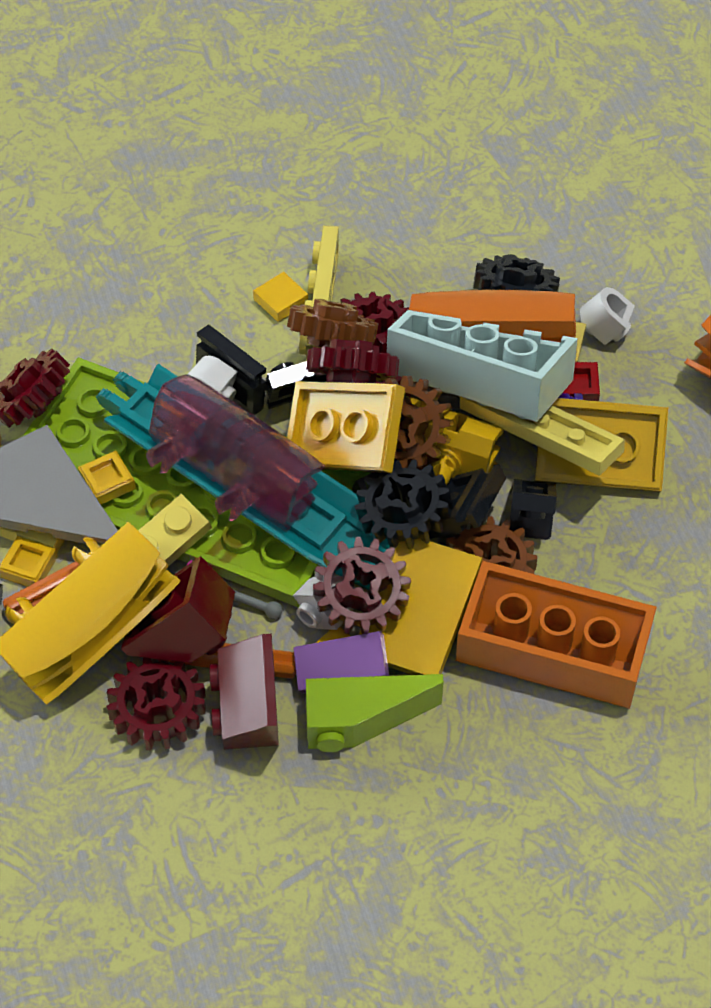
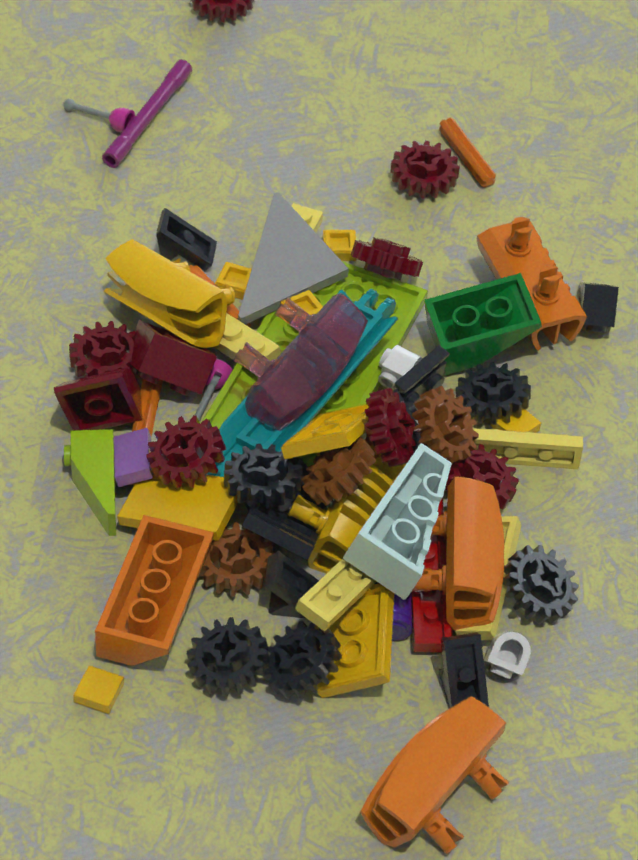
camera: 85 degrees right, 5 degrees down
(88, 252) = (519, 249): none -> orange piece
(111, 205) = (599, 305): none -> black slope
(150, 299) = (481, 320): none -> green slope
(244, 305) = (494, 392): none -> black gear
(634, 357) = (463, 669): none -> black slope
(650, 560) = (228, 654): none -> black gear
(652, 502) = (301, 660): none -> black gear
(677, 704) = (98, 689): none -> yellow tile

